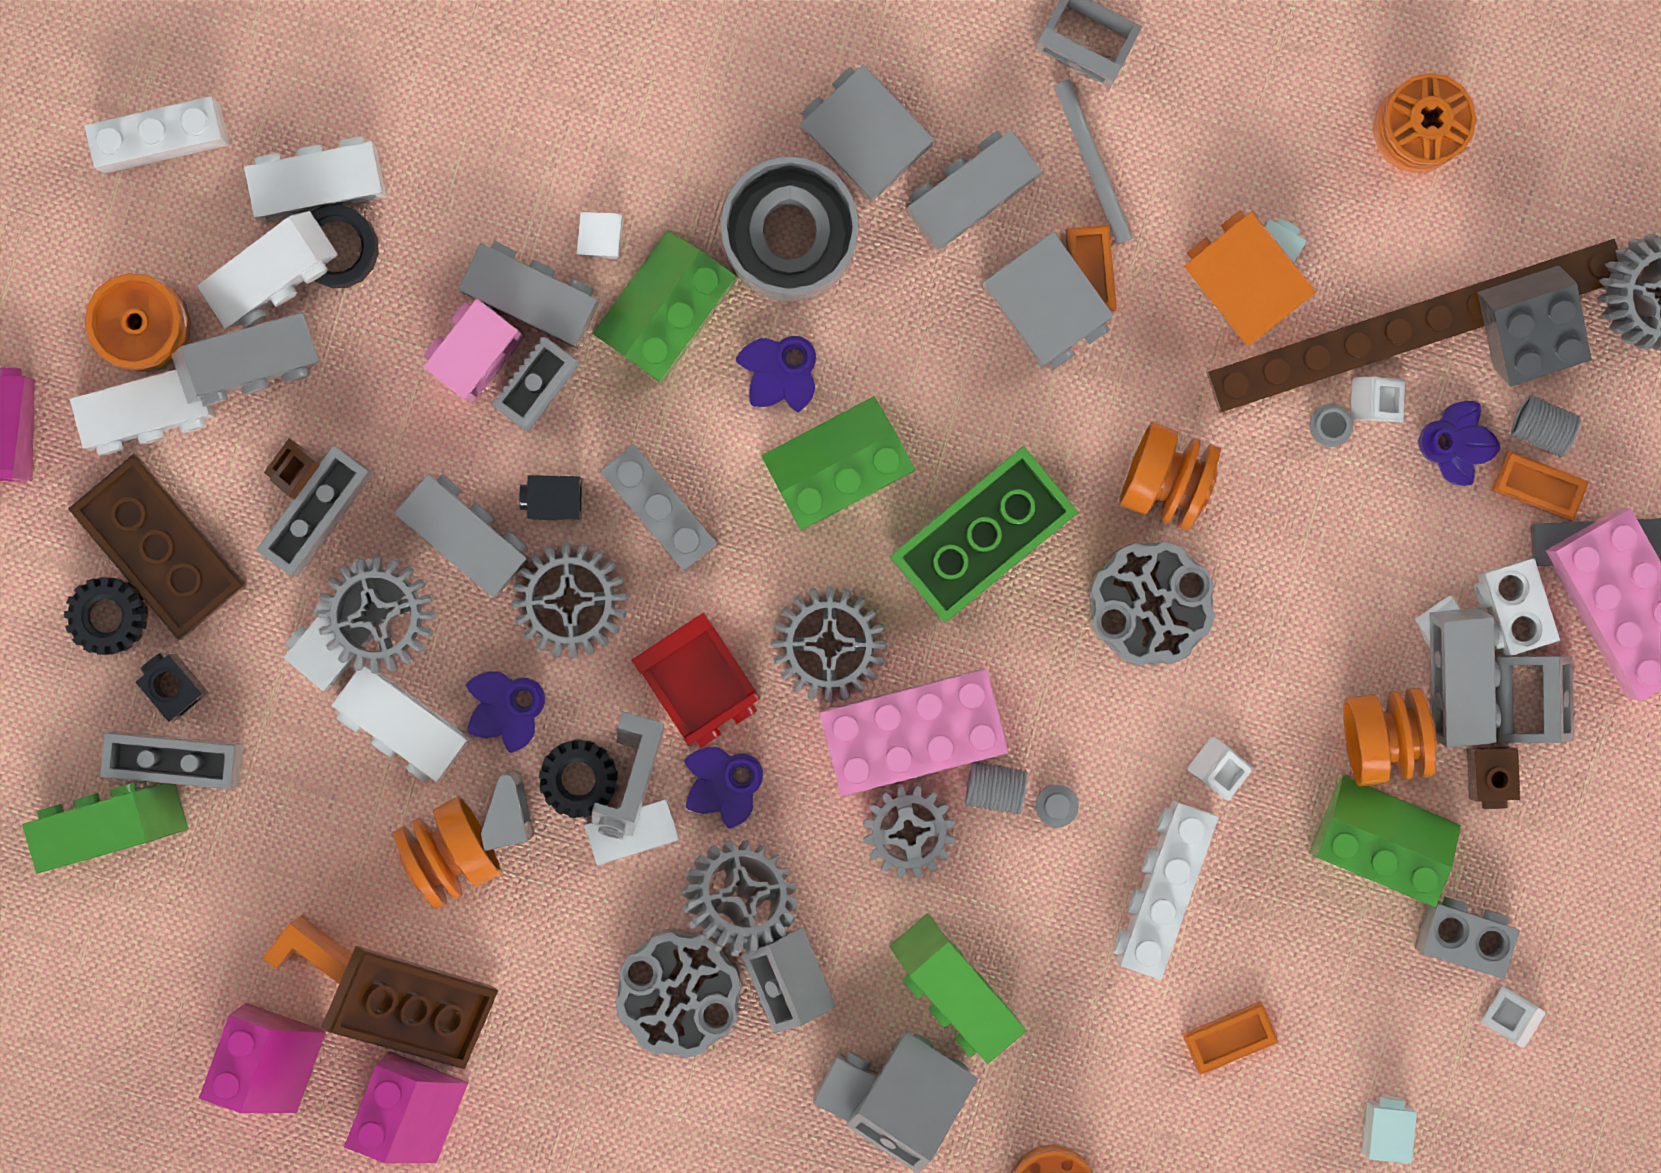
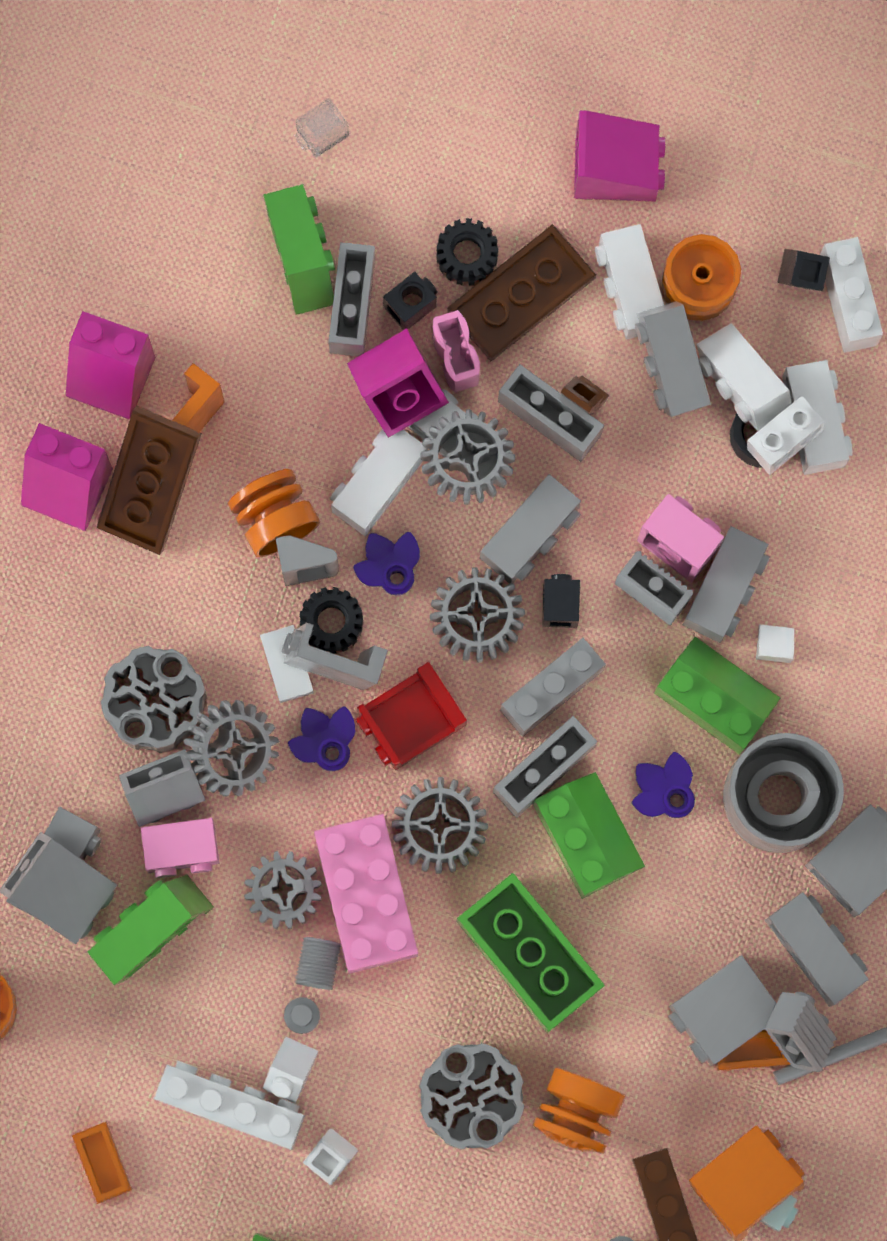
camera: 90 degrees right, 10 degrees down
(126, 194) = (803, 270): none -> black brick
(247, 624) = (452, 344): none -> bright pink brick
(281, 703) = (397, 383): none -> dark pink slope
(344, 220) = (785, 435): none -> white brick
(758, 517) = (544, 766): none -> light grey brick
(858, 955) = (180, 847): none -> bright pink brick
(1073, 212) = (800, 1031): none -> light grey brick
(1123, 819) = (290, 1069): none -> white brick

